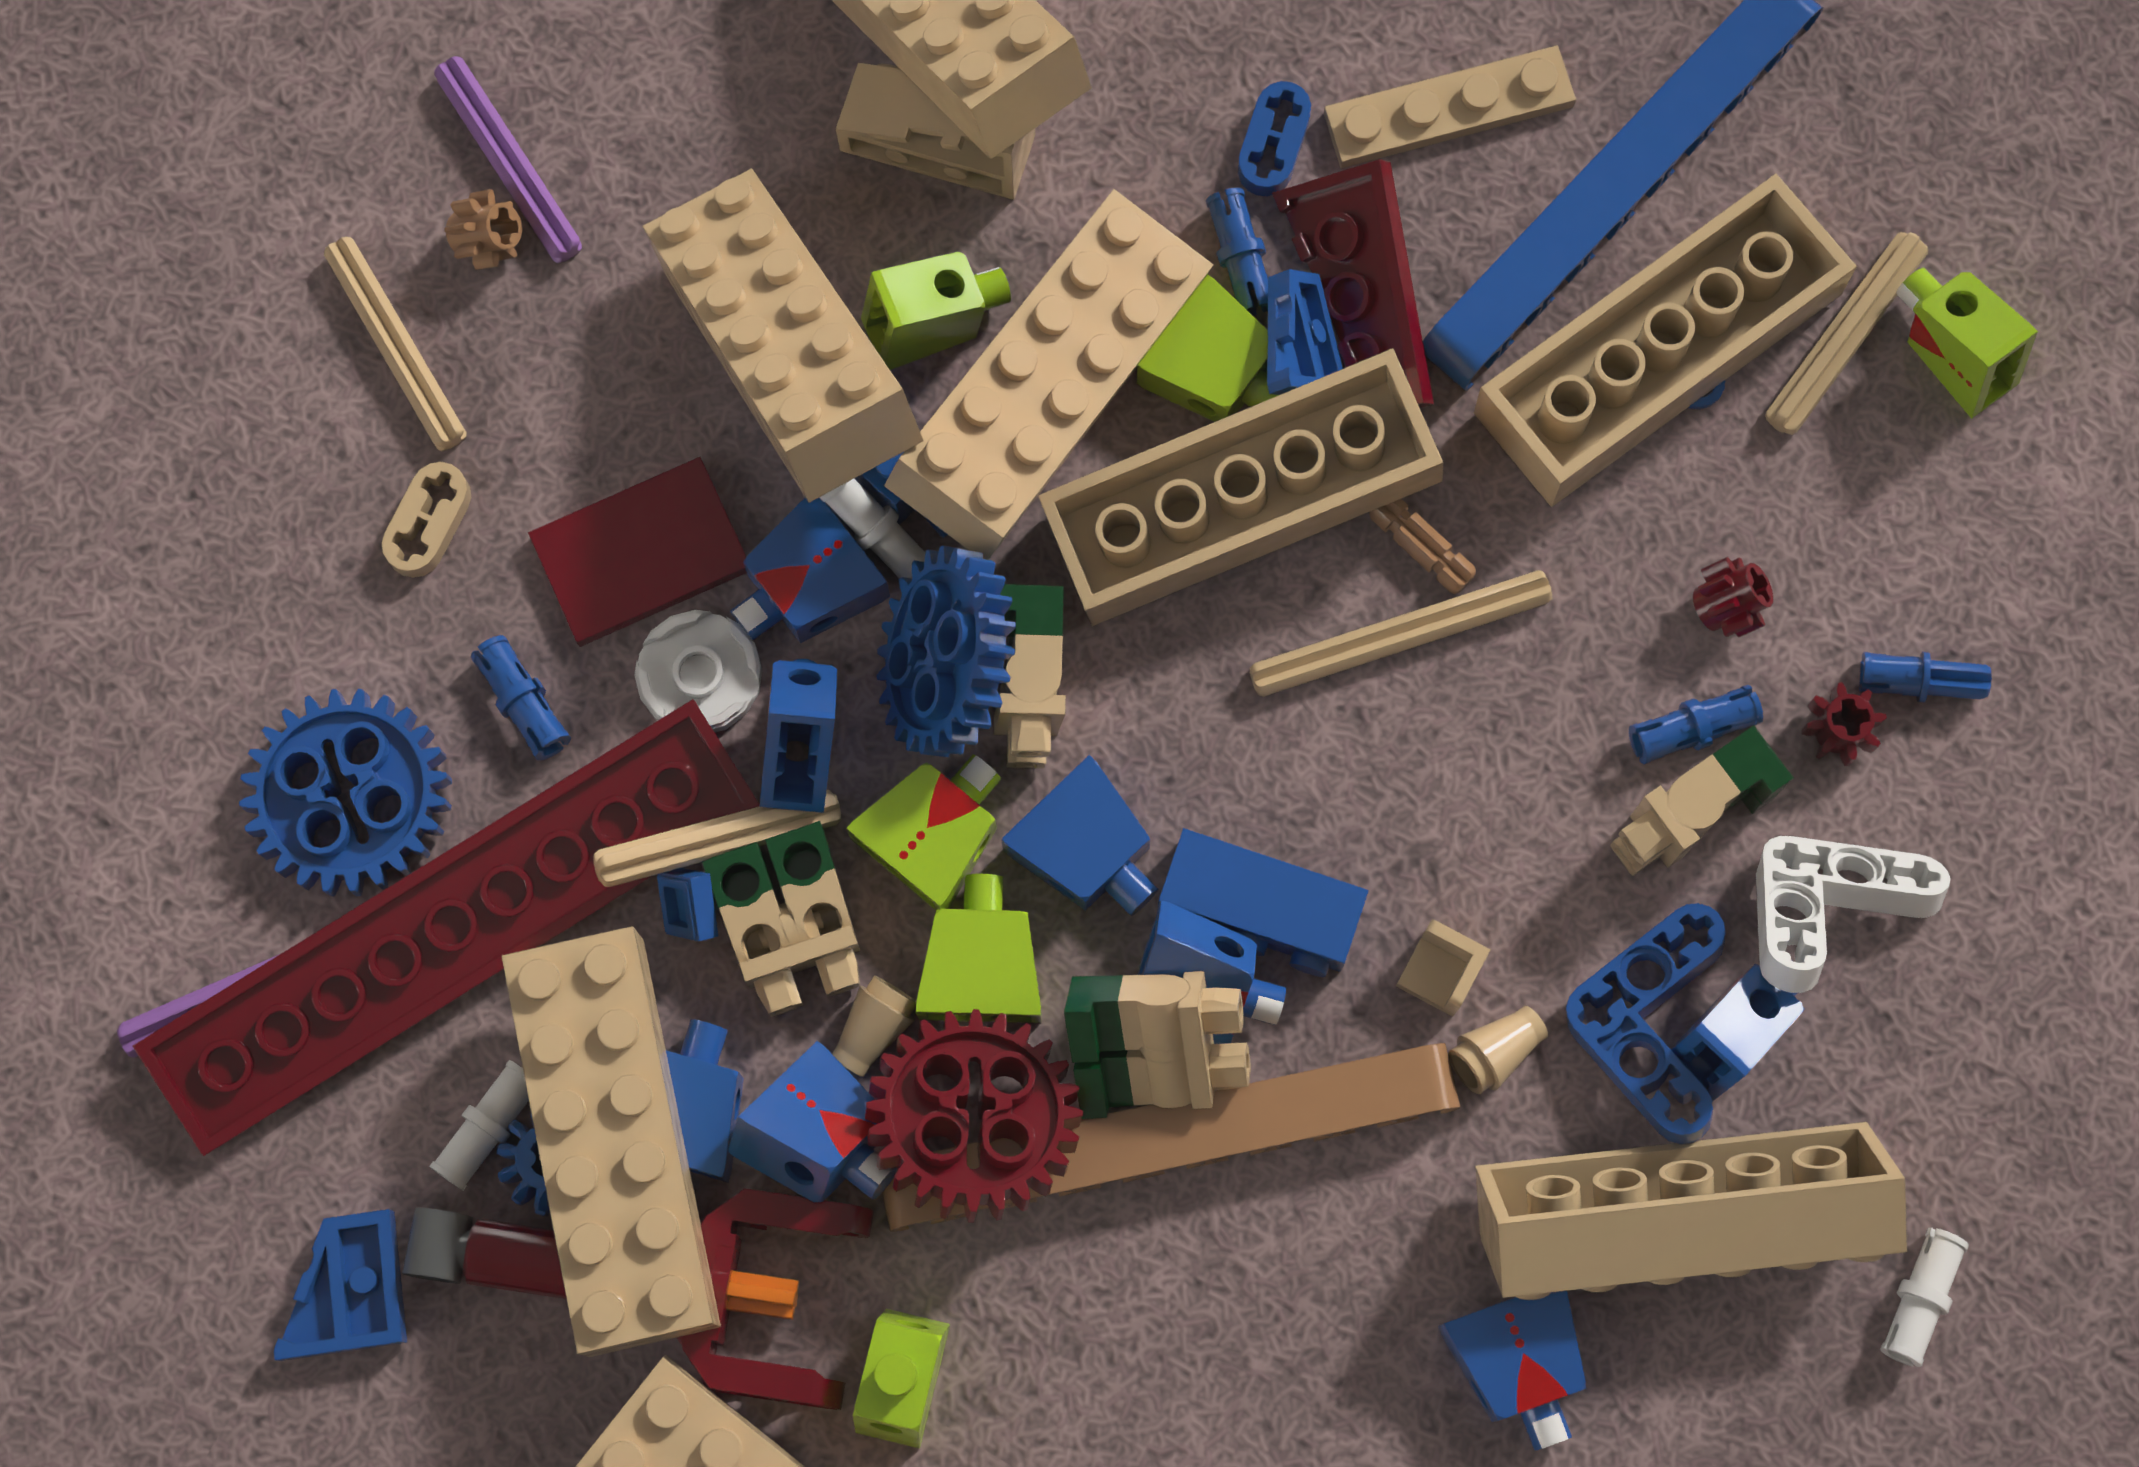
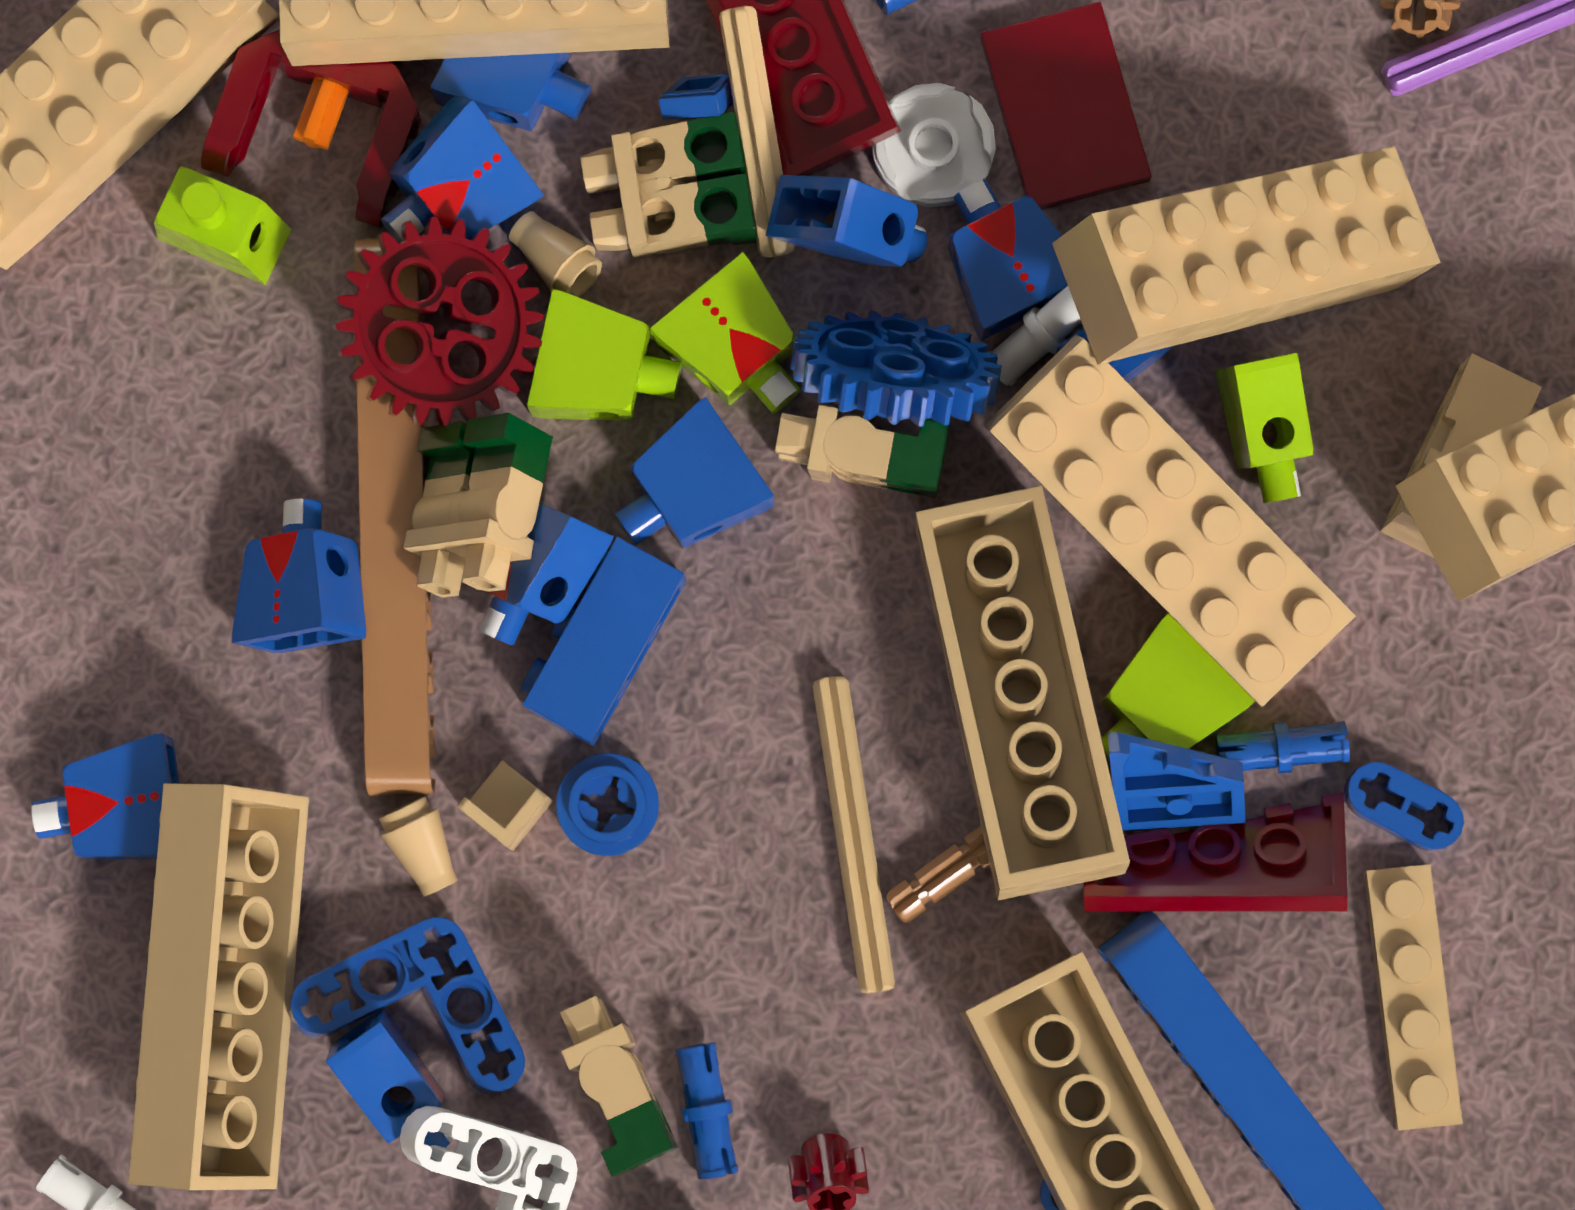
camera: 100 degrees right, 5 degrees up
(1264, 1212) = (299, 586): none -> blue torso
(1443, 854) = (592, 778): none -> blue gear

